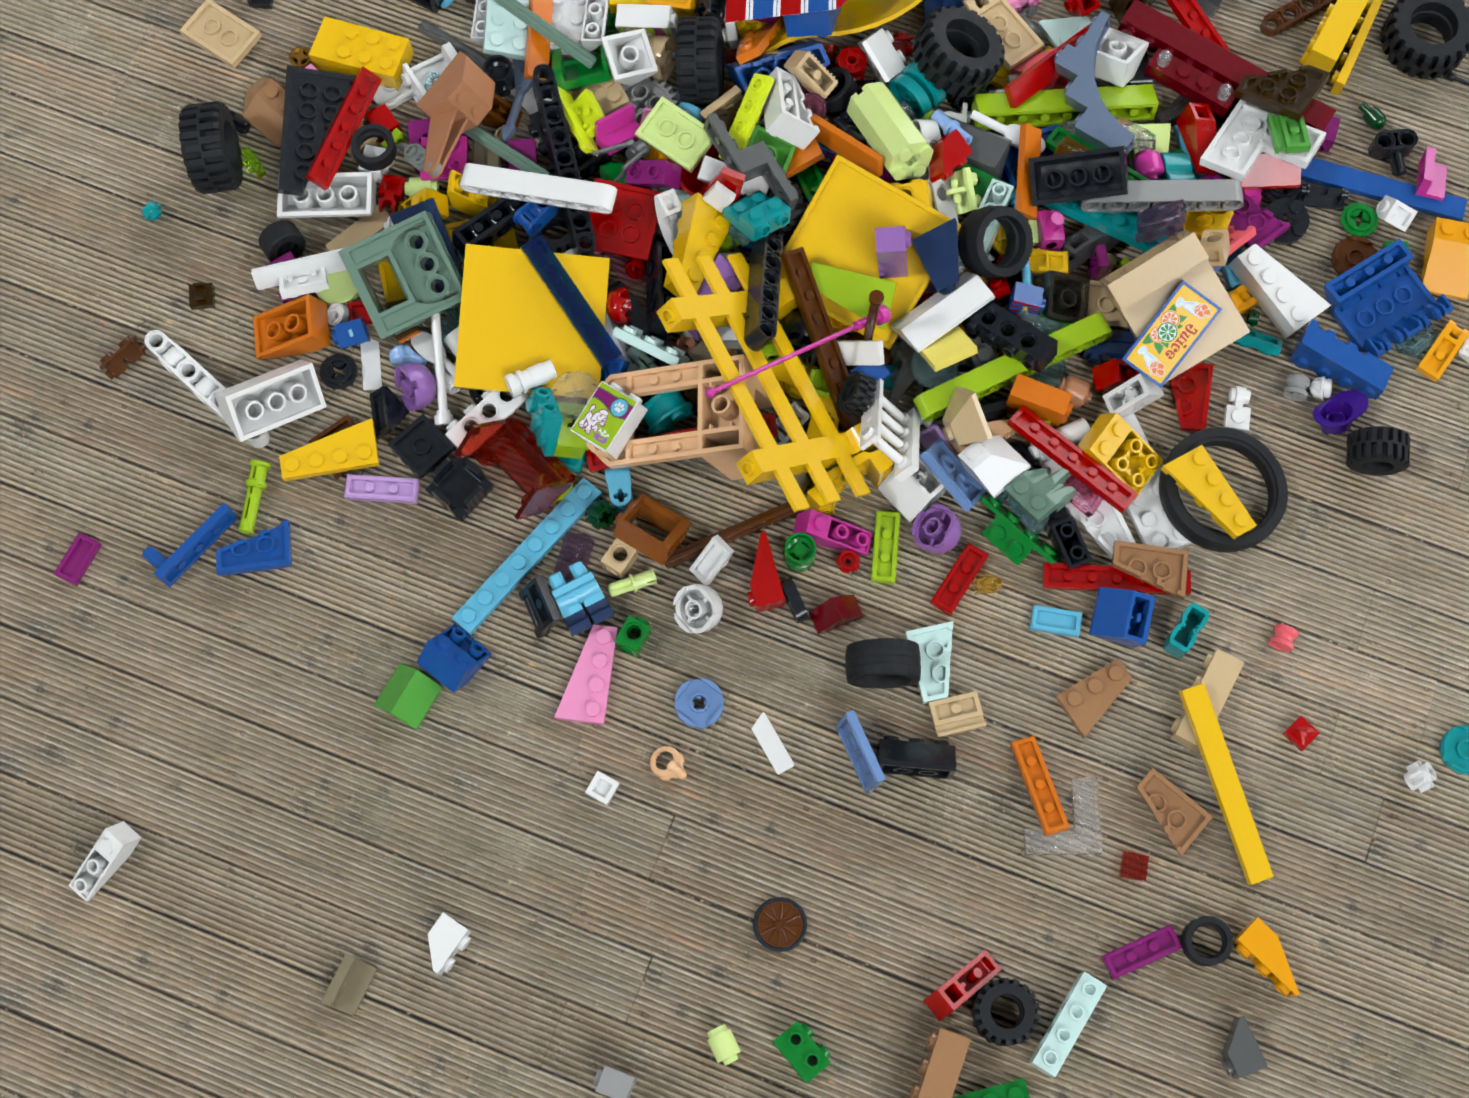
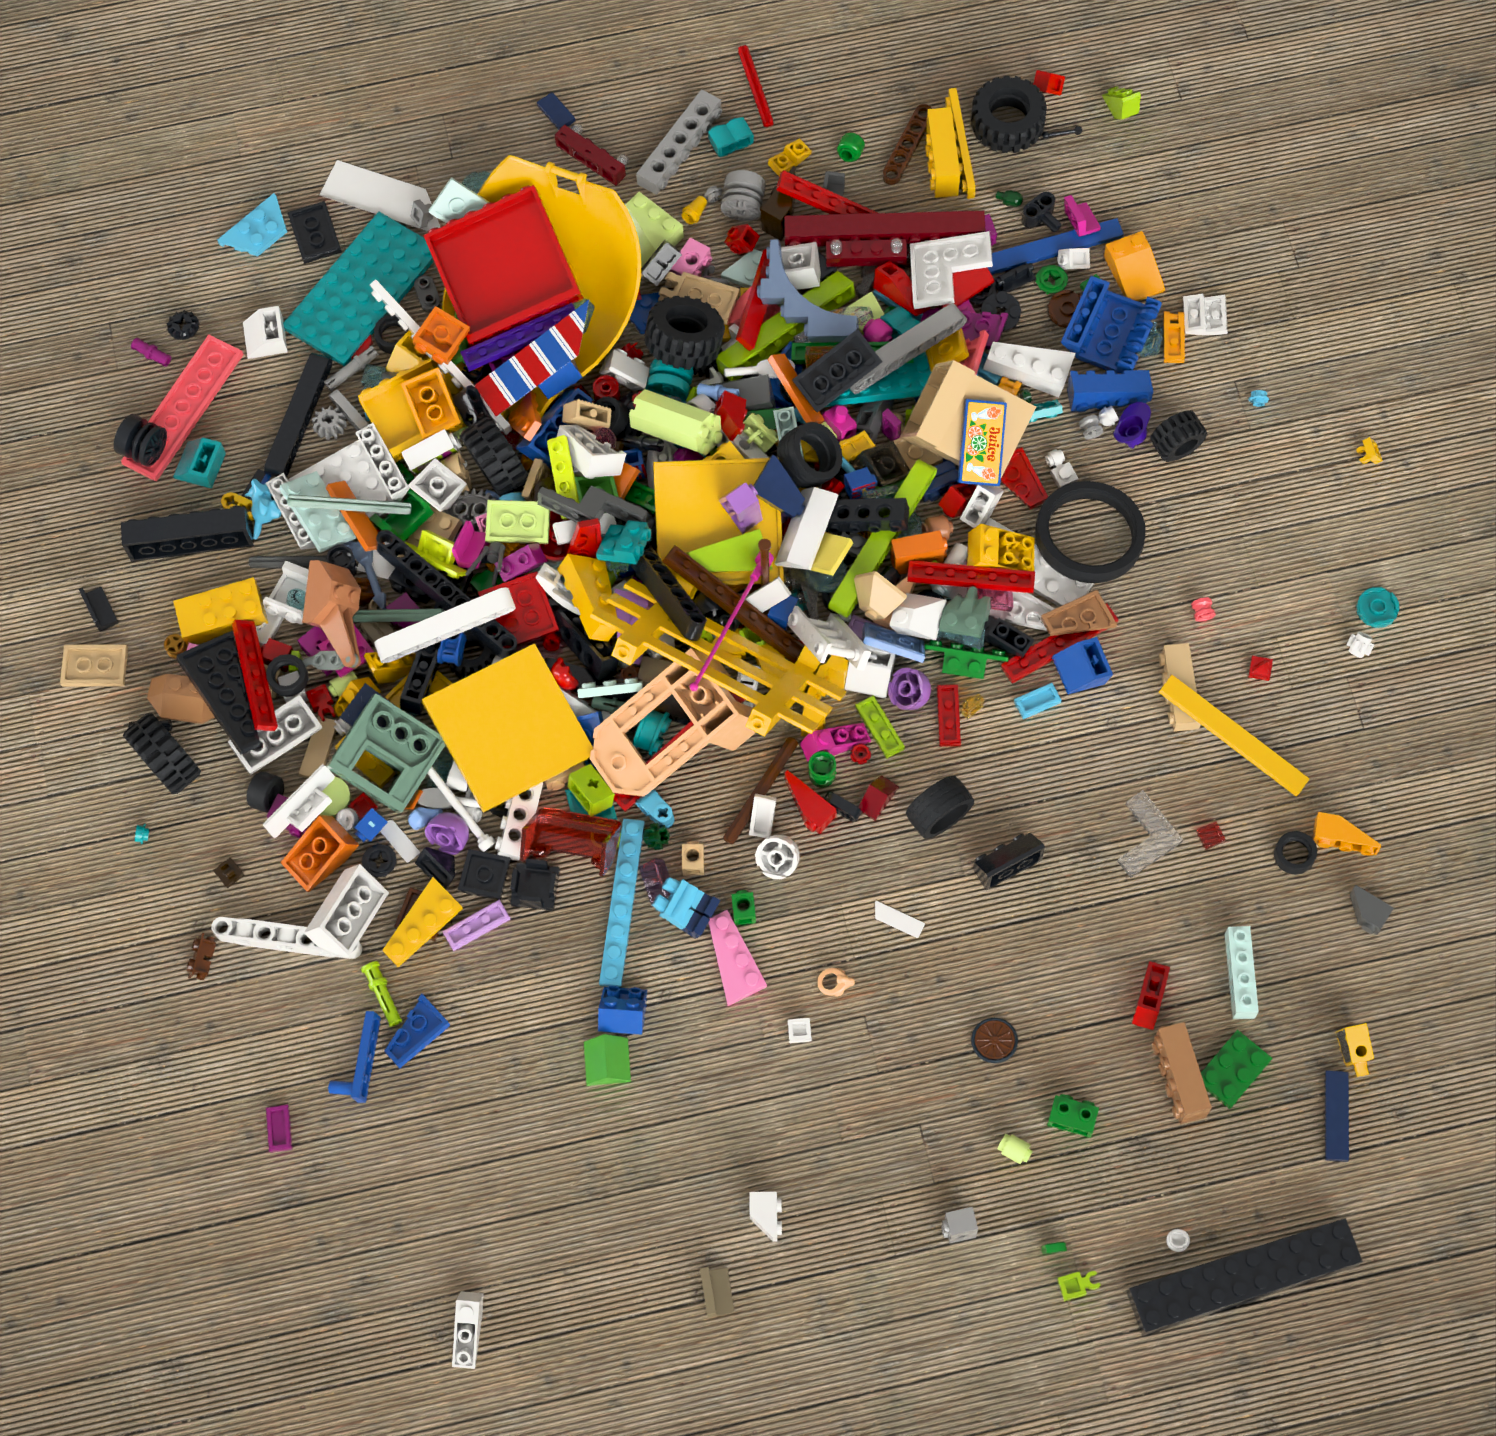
camera: 30 degrees left, 5 degrees down
(252, 164) = (195, 748): clear neon green plate -> none
(530, 378) = (538, 768): white axle -> none
(540, 605) = (661, 930): black plate -> none
(545, 419) = (569, 792): teal plate -> none
(571, 301) = (529, 692): clear blue plate -> none
(573, 392) = (579, 759): clear tile -> none
(609, 418) = (620, 759): brick -> none
(632, 583) = (715, 870): yellowish green axle -> none
(658, 515) = (702, 810): dark orange window -> none
(699, 717) = (819, 935): medium blue plate -> none
(719, 196) = (586, 547): white tile -> none
(848, 146) = (653, 452): orange tile -> none
(856, 394) = (786, 627): black tyre -> none
(860, 752) = (967, 880): medium blue tile -> none
(935, 654) = (969, 774): light aqua wing -> none
(957, 714) = (1015, 811): tan plate -> none
(1027, 1012) = (1198, 976): black tyre -> none
(1039, 786) = (1107, 822): orange tile -> none
(1093, 695) = (1100, 735): medium nougat wing -> none
(1141, 952) = (1256, 890): magenta tile -> none
(1161, 221) = (917, 367): clear purple plate -> none
(1174, 810) = (1211, 778): medium nougat wing -> none
(1186, 630) = (1133, 647): teal brick -> none
(1209, 488) = (1075, 534): yellow wing -> none
(1216, 246) = (968, 357): tan brick -> none
(1284, 91) = (939, 219): dark brown plate -> none
(1288, 134) = (963, 247): bright green plate -> none

